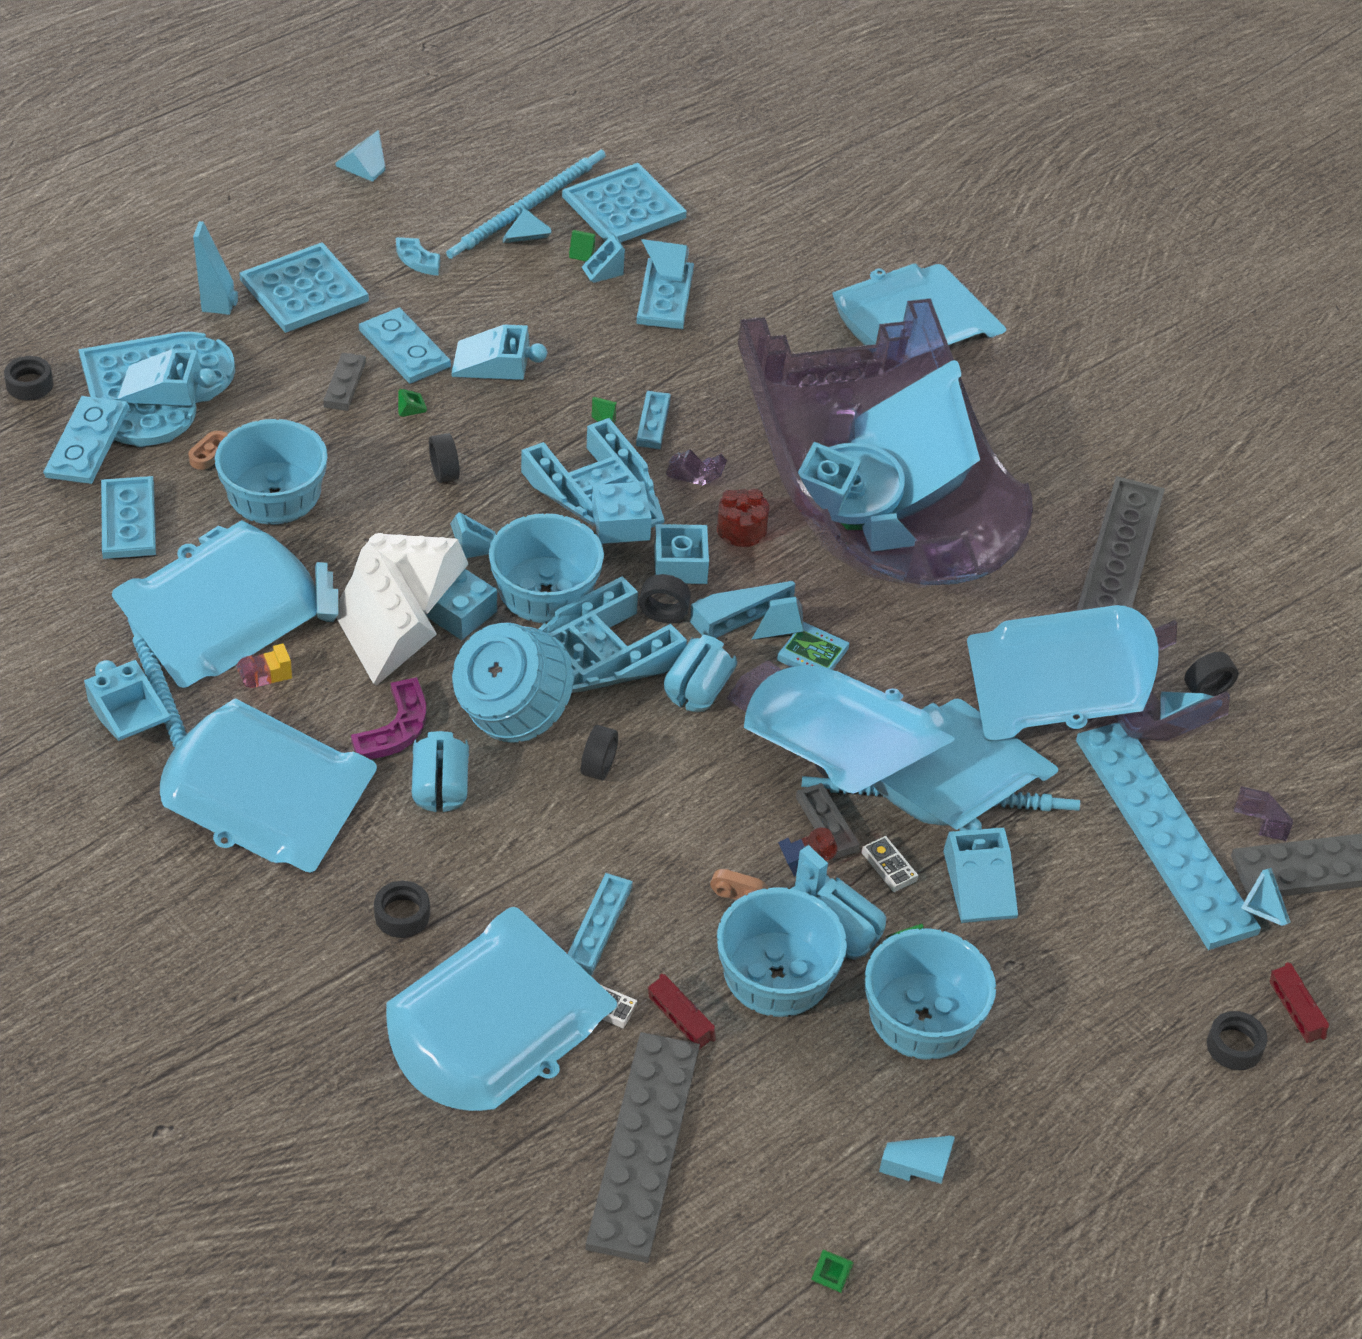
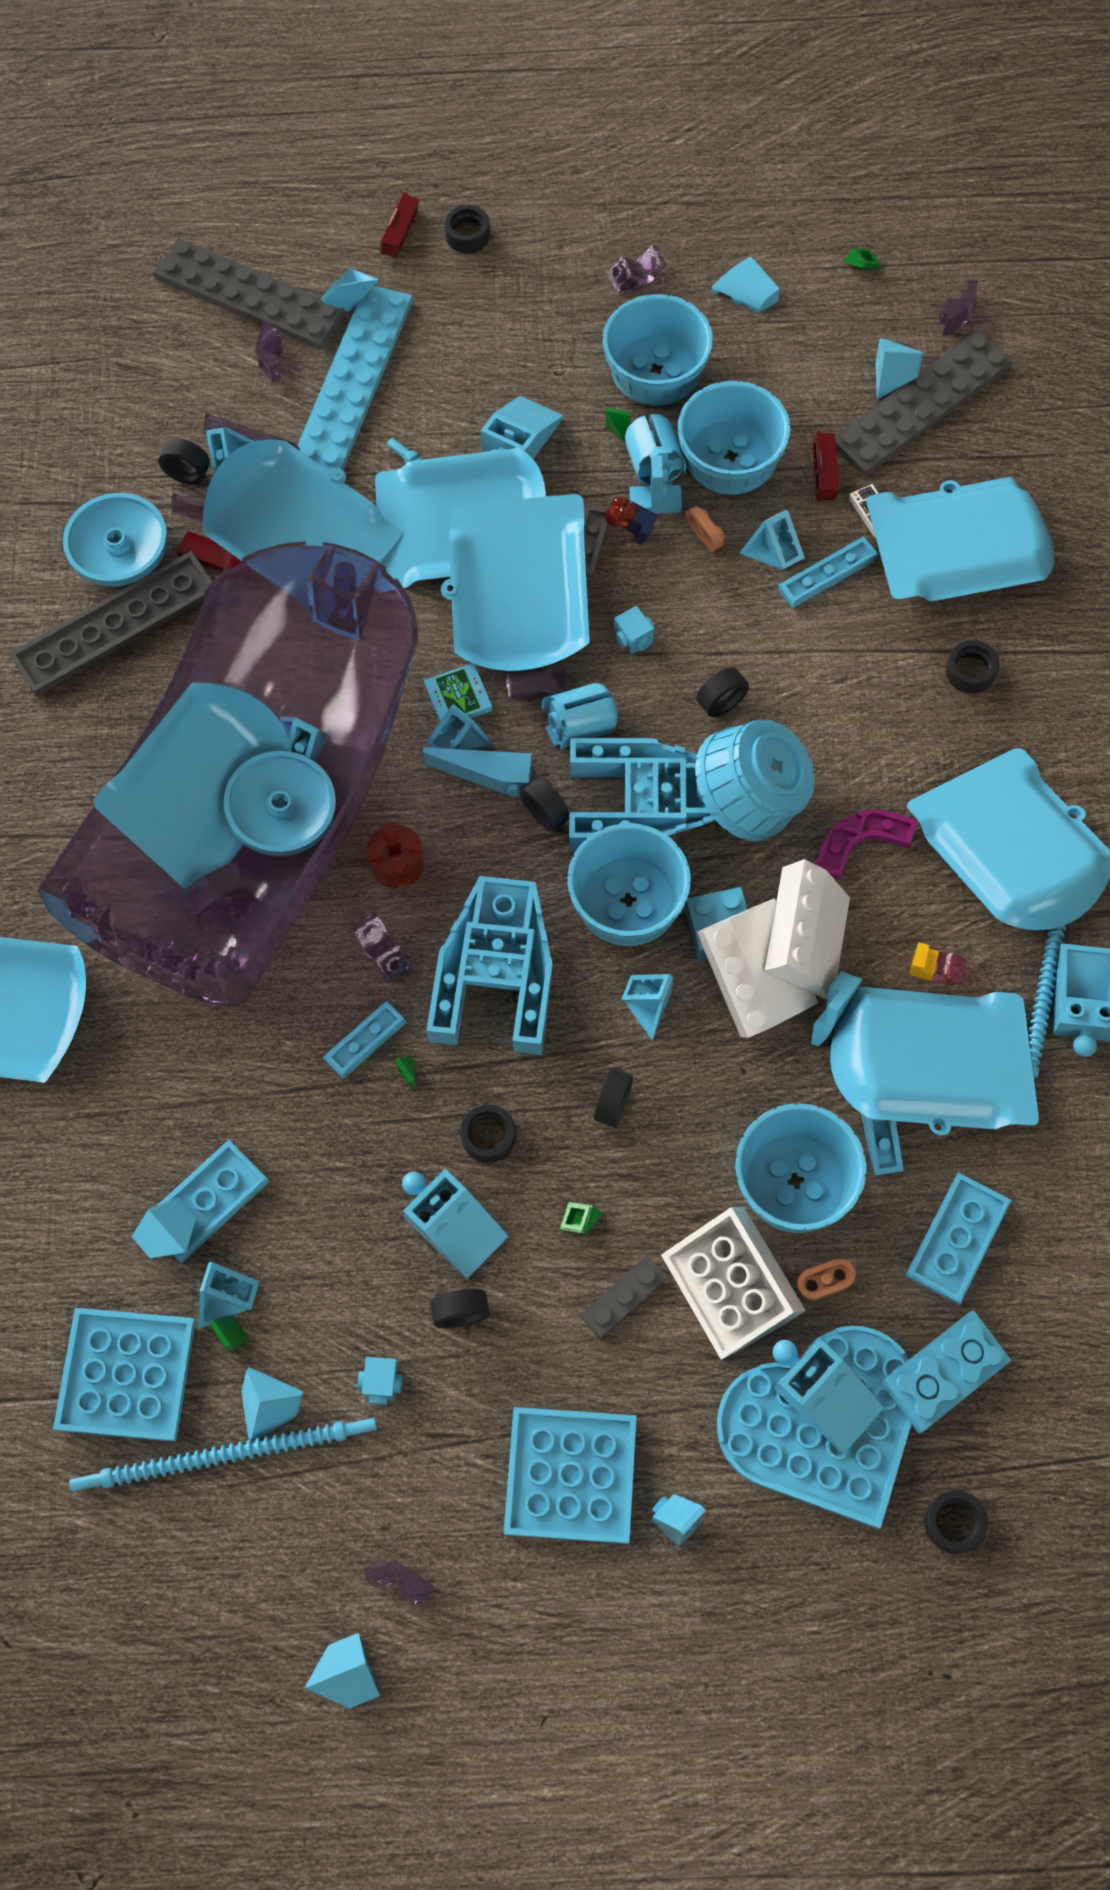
camera: 135 degrees left, 20 degrees up
(258, 403) = (732, 1282): none -> white slope
(362, 203) = (411, 1585): none -> clear purple slope
(404, 345) = (526, 1311): medium azure piece -> none
(417, 257) = (411, 1450): medium azure tile -> none
(436, 752) = (864, 755): medium azure cylinder -> none
(439, 305) = (459, 1308): none -> black tyre
(465, 269) = (380, 1380): none -> medium azure brick
(515, 422) = (483, 1112): none -> black tyre
(621, 512) = (521, 888): medium azure brick -> none
(663, 915) = (775, 542): none -> medium azure slope
(682, 552) = (487, 845): medium azure brick -> none
(685, 1261) = (959, 310): none -> clear purple slope
(701, 1145) = (895, 366): none -> medium azure slope
(719, 769) = (634, 630): none -> medium azure brick
(828, 476) = (313, 787): medium azure slope -> none
(889, 864) = (574, 479): tile -> none
(1041, 1102) = (630, 273): none -> clear purple slope
(1192, 593) = (115, 539): none -> medium azure dish

